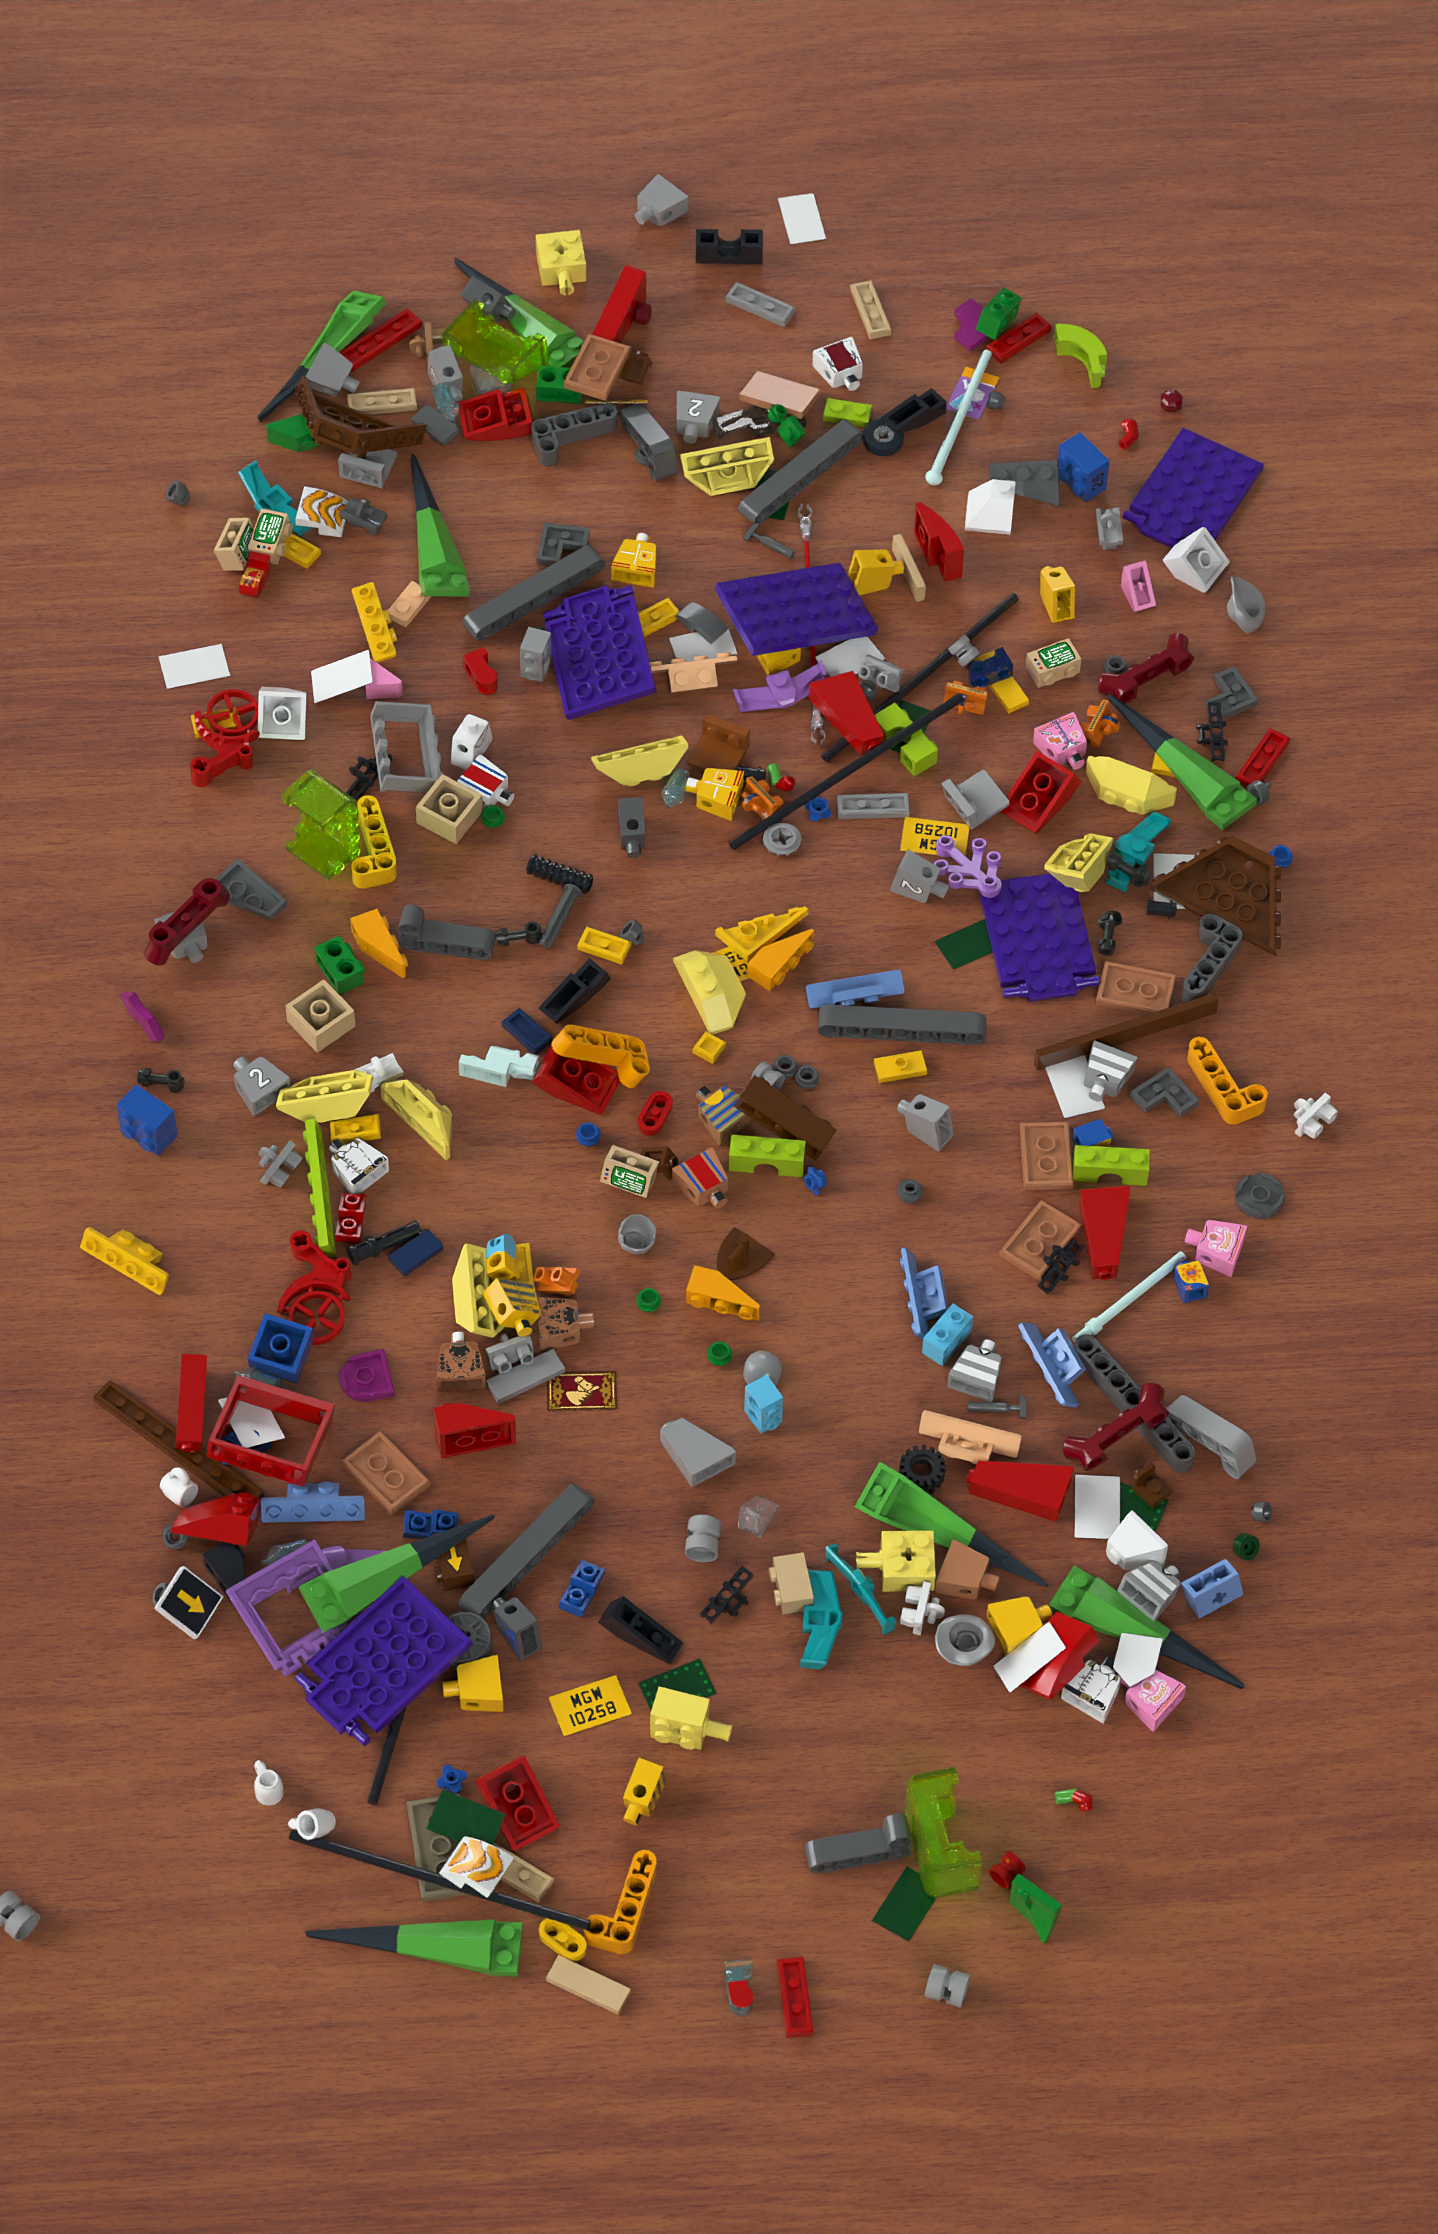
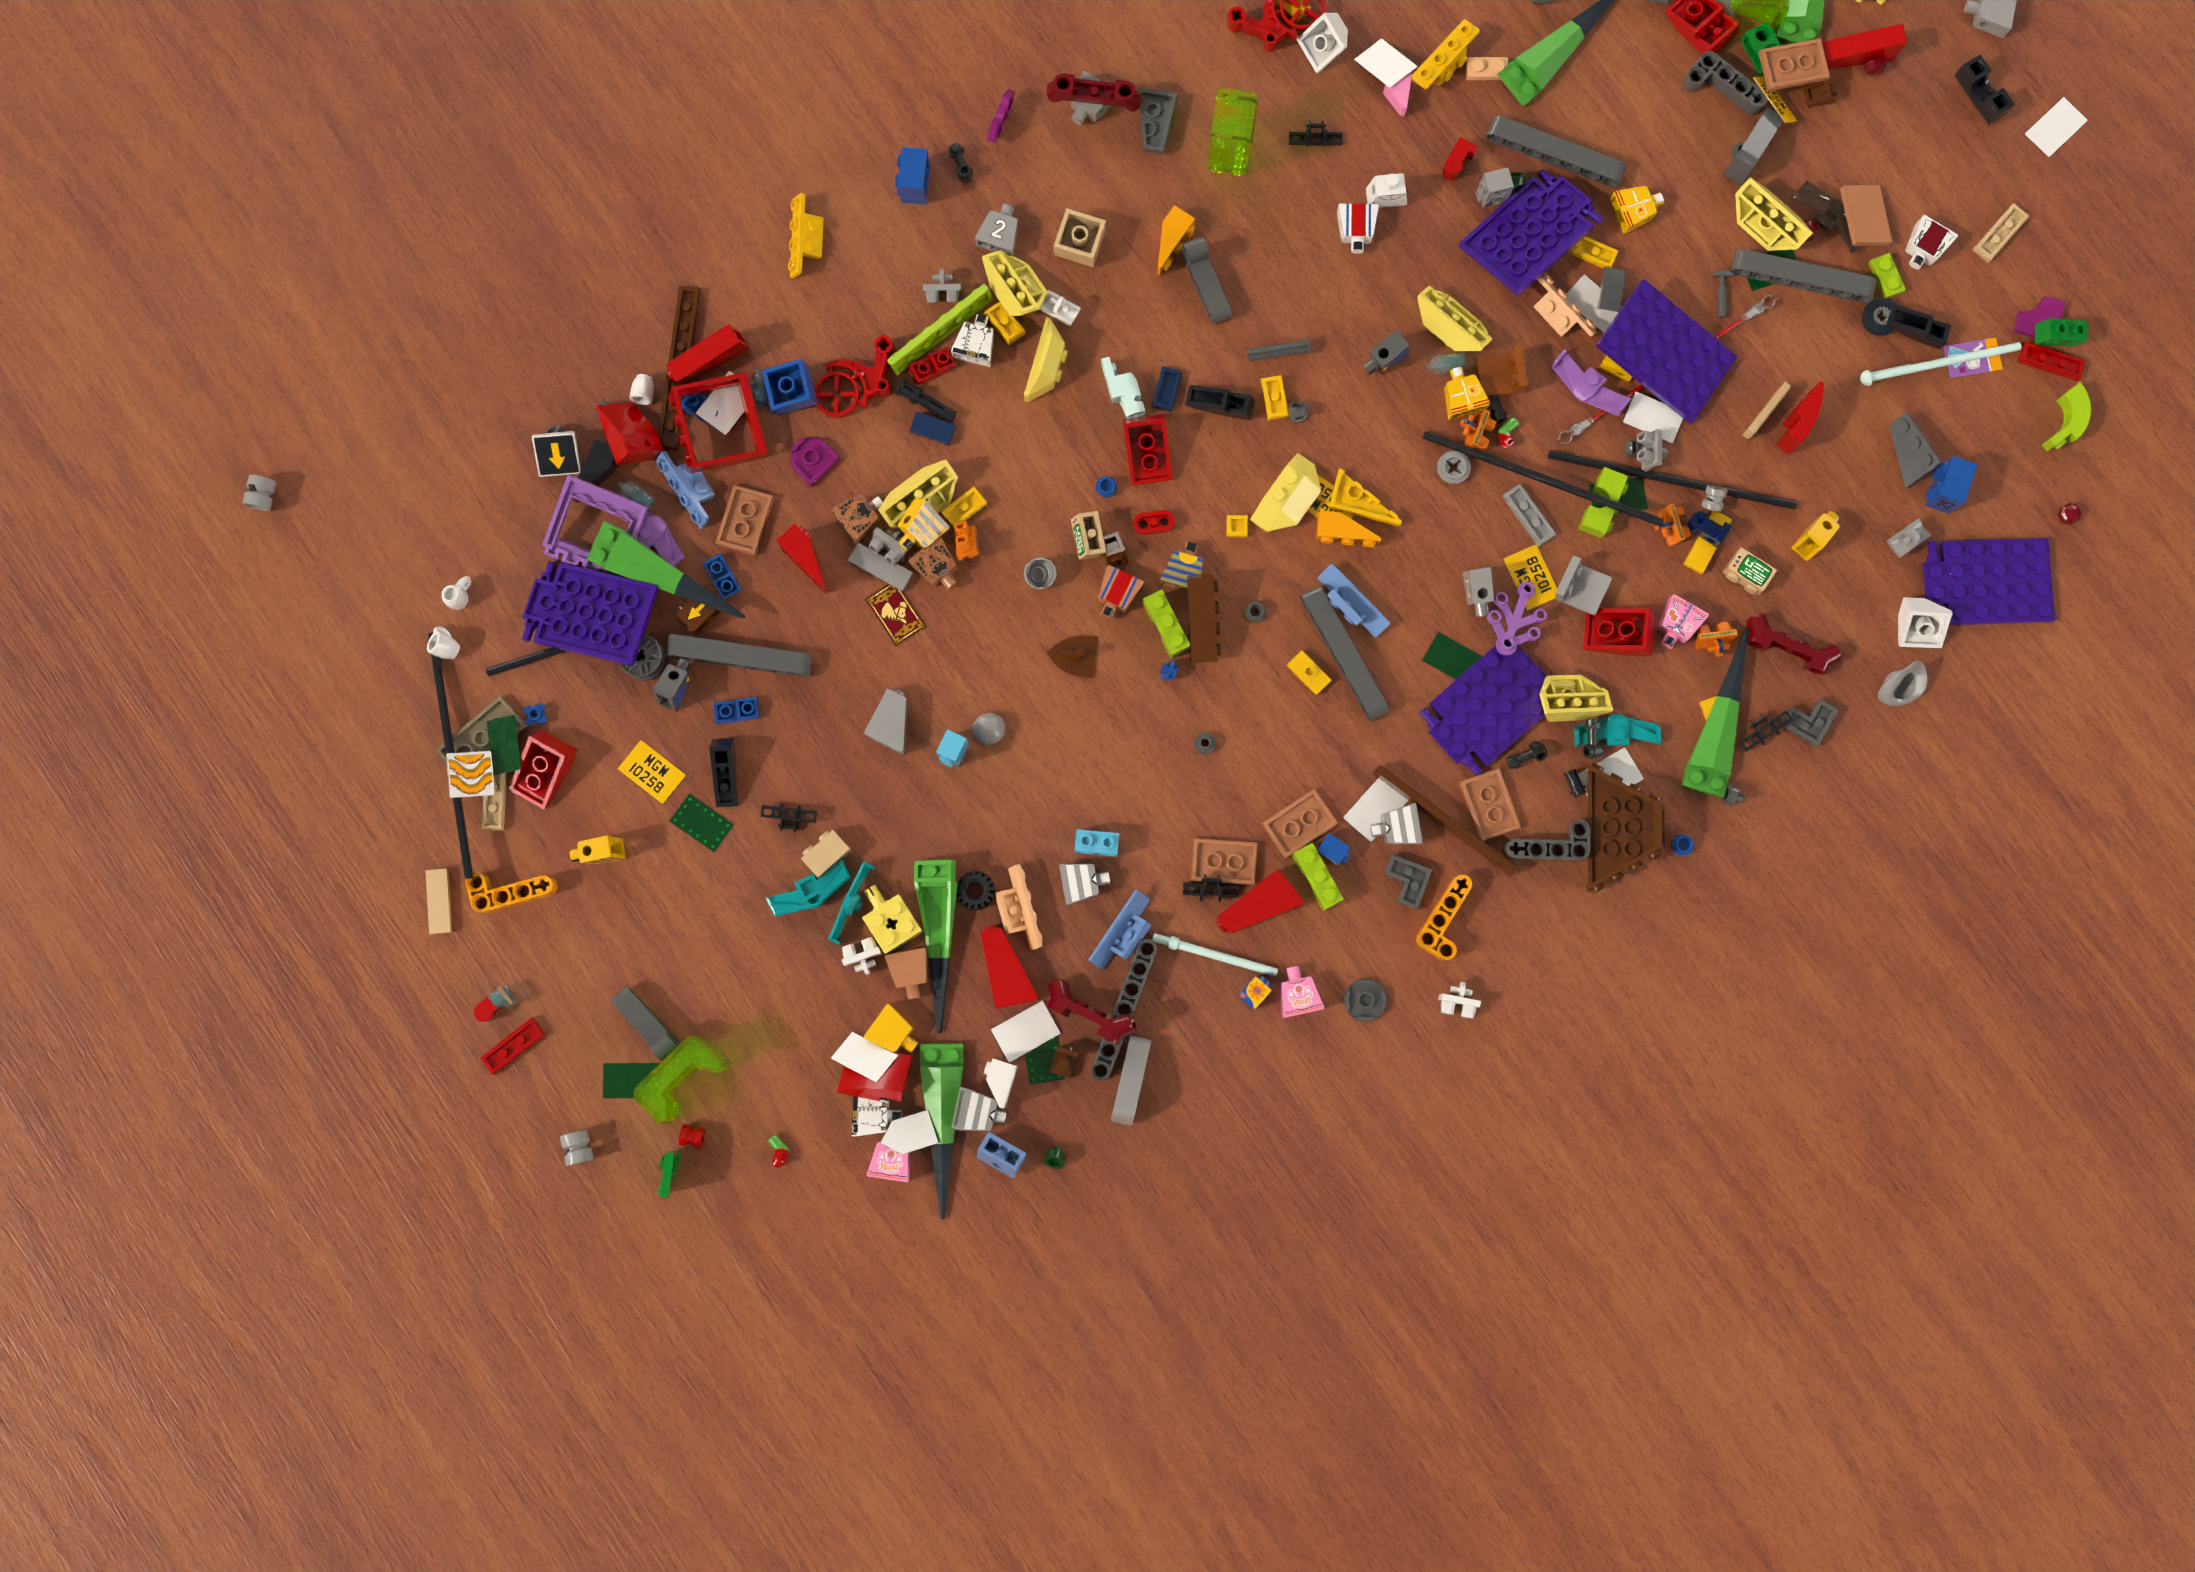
camera: 60 degrees right, 25 degrees up
(336, 966) = (1130, 221): green brick -> none
(370, 869) = (1255, 177): yellow beam -> none
(428, 739) = (1371, 161): light grey window -> none
(449, 809) = (1317, 213): tan brick -> none
(471, 1945) = (419, 804): bright green plate -> none
(477, 1685) = (614, 688): yellow torso -> none
(493, 816) = (1335, 248): green plate -> none
(501, 1258) = (956, 491): yellow leg -> none
(531, 933) = (1252, 338): pearl dark grey bar -> none
(559, 537) = (1617, 136): dark grey plate -> none
(559, 873) = (1315, 327): black piece -> none
(565, 1938) = (455, 865): yellow plate -> none
(605, 1047) = (1171, 453): light orange beam -> none
(648, 1300) = (995, 614): green plate -> none
(684, 1720) = (666, 846): light yellow brick -> none
(696, 414) = (1803, 165): light grey torso -> none
(702, 1538) = (819, 772): light grey wheel -> none
(716, 1292) = (1030, 654): light orange slope -> none
(719, 1354) = (982, 690): green plate -> none
(757, 1515) = (868, 796): clear slope -> none
(760, 304) = (1947, 147): light grey tile -> none
(765, 1071) = (1234, 586): light grey wheel -> none
(786, 1061) = (1254, 584): dark grey plate -> none
(790, 428) = (1837, 242): green plate -> none
(814, 805) = (1504, 477): blue plate -> none
(848, 710) = (1599, 444): red slope -> none
(873, 570) = (1743, 386): yellow torso -> none
(926, 1292) = (1122, 806): medium blue bracket -> none
(928, 1120) = (1269, 720): light grey torso -> none
(964, 1639) = (850, 1003): light grey hat -> none
(991, 507) = (1867, 438): white slope -> none
(996, 400) = (1976, 380): dark grey hinge -> none
(1001, 1407) = (1063, 913): dark grey piece -> none
(1115, 661) = (1785, 619): dark grey plate -> none
(1128, 786) = (1667, 695): light yellow wedge -> none
(1132, 434) = (2016, 501): red arm -> none
(1138, 586) = (1865, 593): bright pink slope -> none
(1261, 1511) = (1092, 1153): dark grey hinge -> none
(1263, 758) = (1767, 779): red tile -> none

